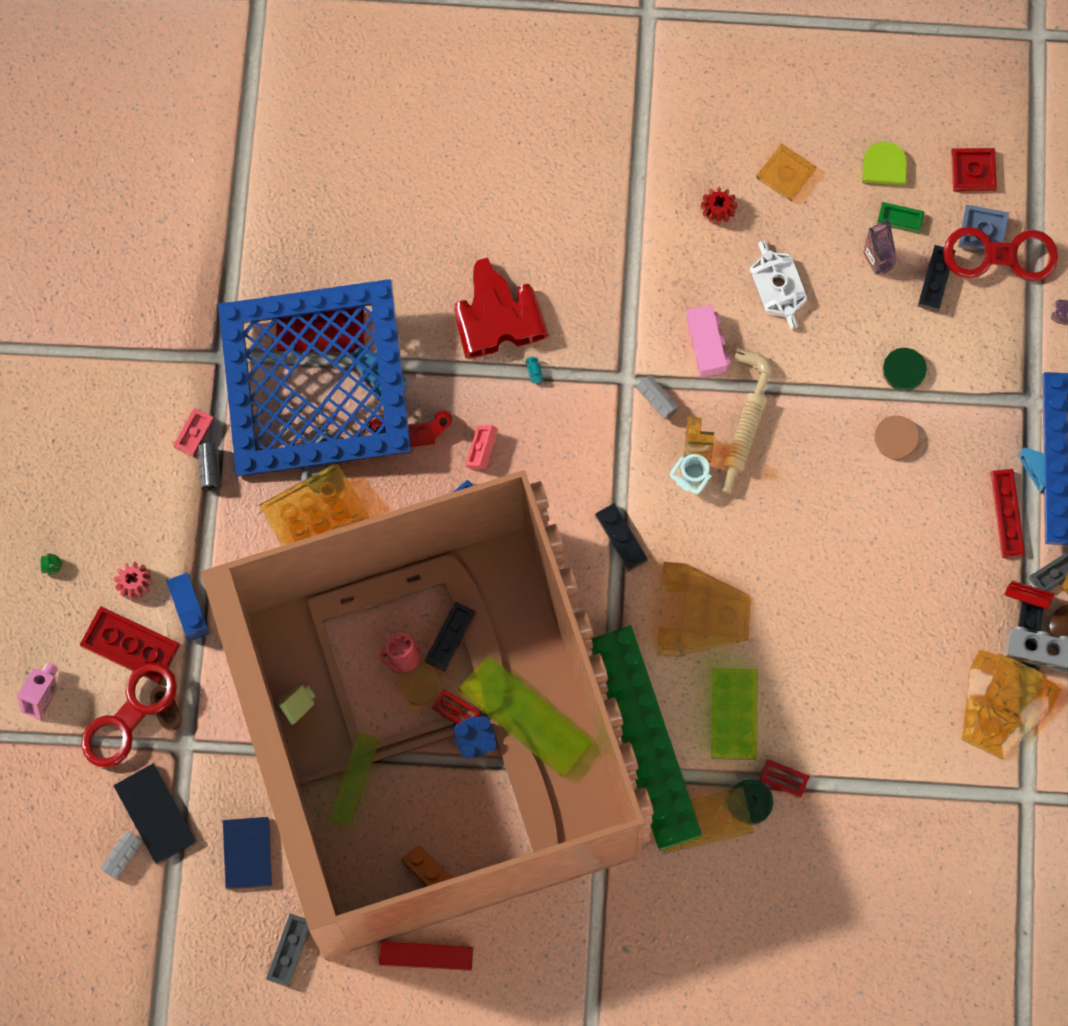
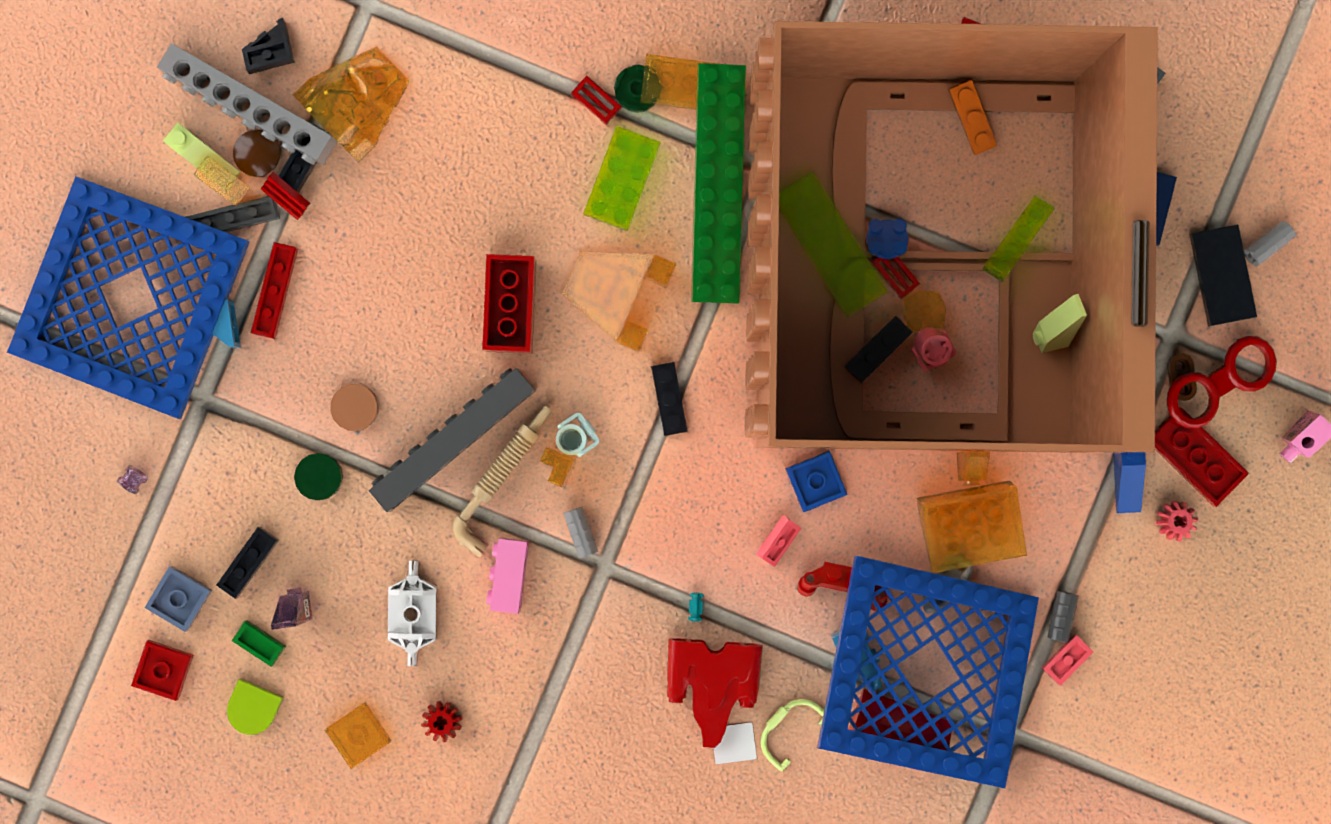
camera: 160 degrees left, 15 degrees up
(50, 564) = (1255, 568): green plate -> none
(259, 711) = (1140, 273): none -> dark brown axle
(432, 300) = (774, 721): none -> yellowish green piece
(458, 271) = (736, 744): none -> white sticker
(793, 566) = (509, 303): none -> red brick
(798, 437) = (452, 440): none -> dark grey brick
(1000, 254) = (171, 564): red bar -> none

